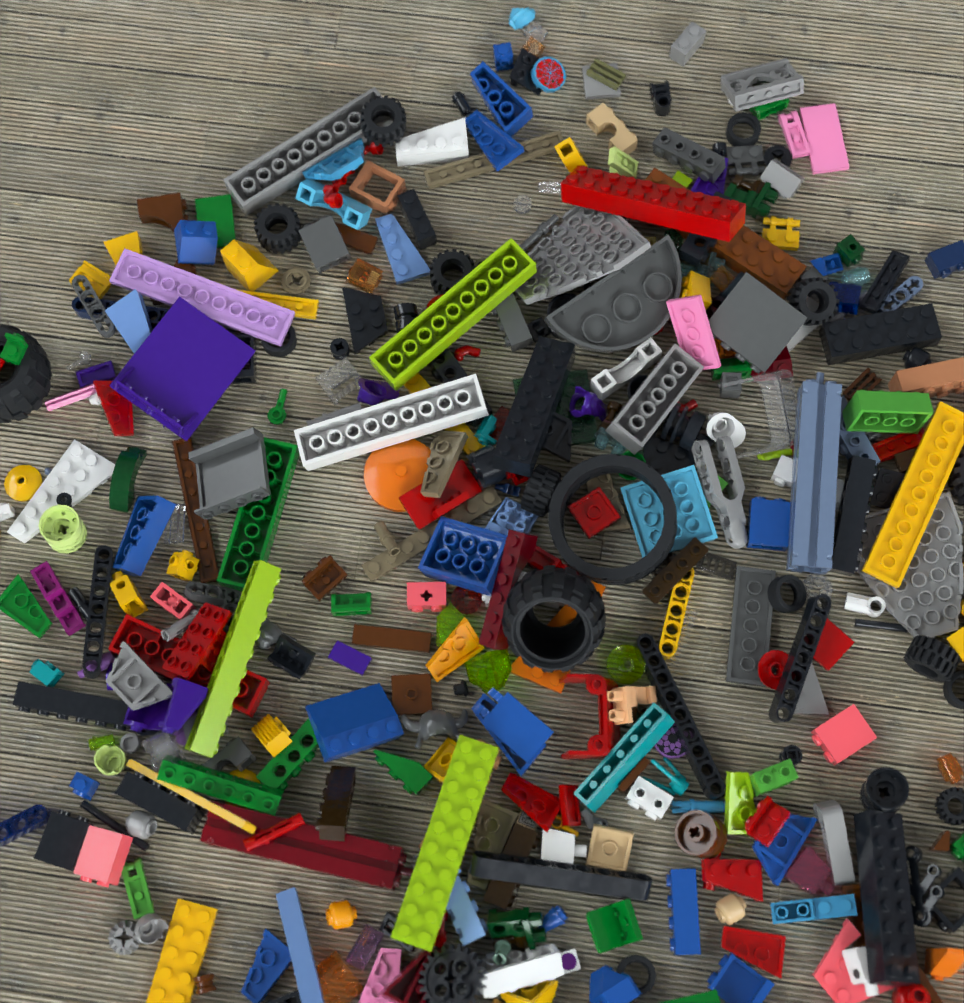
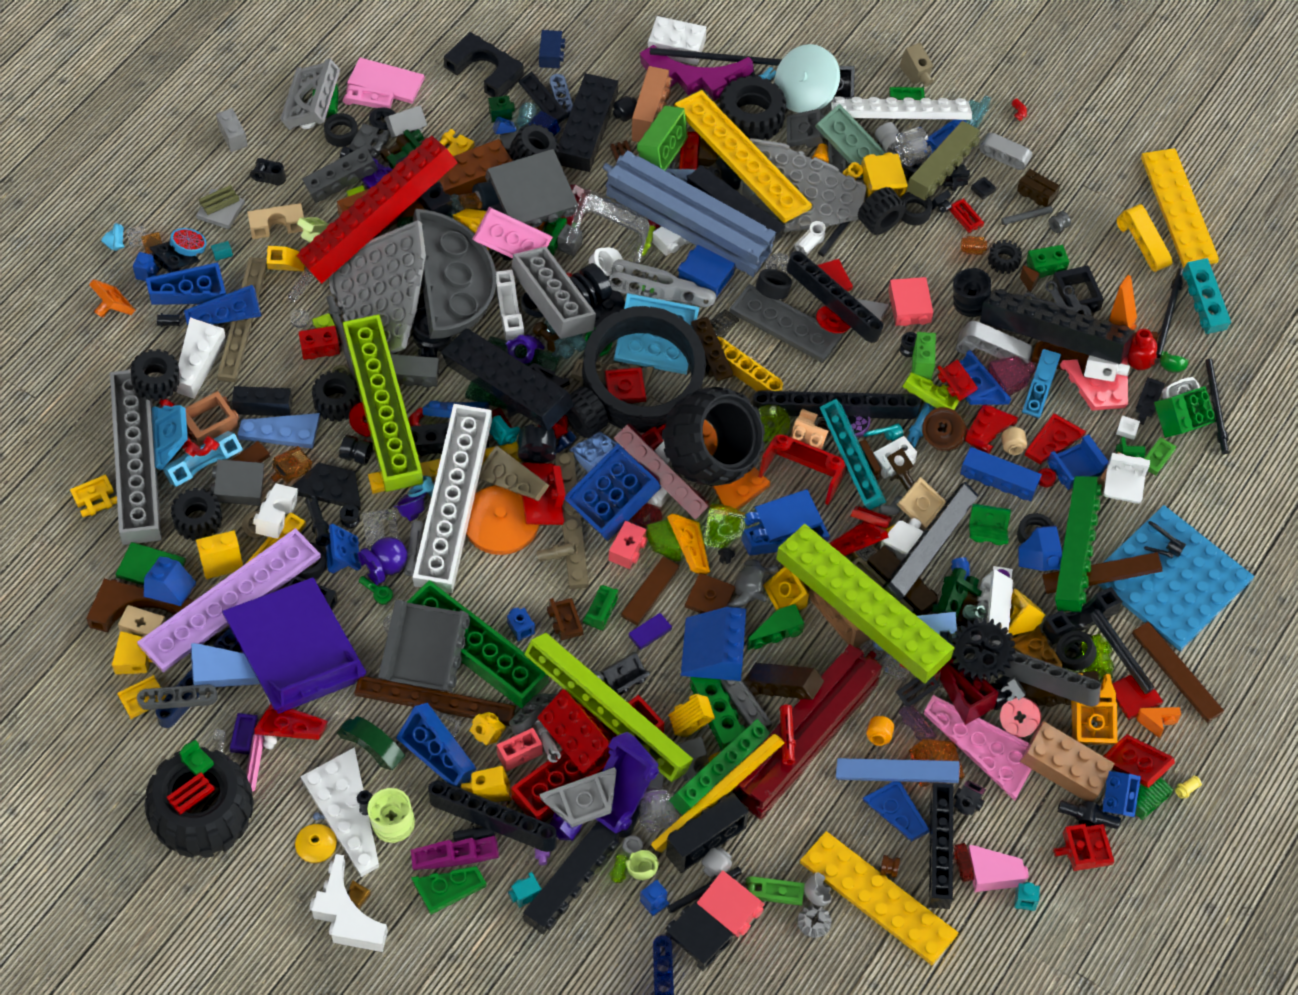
camera: 70 degrees left, 15 degrees down
(157, 235) = (139, 621): none -> tan brick
(262, 138) = (92, 491): none -> yellow plate
(302, 360) = (342, 550): none -> blue bracket
(302, 549) = (519, 628): none -> blue brick
(306, 398) = (386, 557): none -> dark purple tile
(312, 782) = (745, 702): none -> light grey tile
(314, 329) = (319, 526): none -> black pin
(324, 285) = (271, 518): none -> white arch
(402, 391) = (427, 486): none -> medium azure piece
(454, 48) = (111, 298): none -> orange tile
(491, 380) = (444, 409): none -> blue wing
(500, 230) = (319, 342): none -> red brick
(525, 227) = (323, 321): none -> lime plate
(557, 105) = (221, 250): none -> teal slope
(633, 814) = (902, 472): none -> dark brown bracket
(708, 959) = (1047, 478): none -> red tile
(904, 192) = (474, 49): none -> black arch

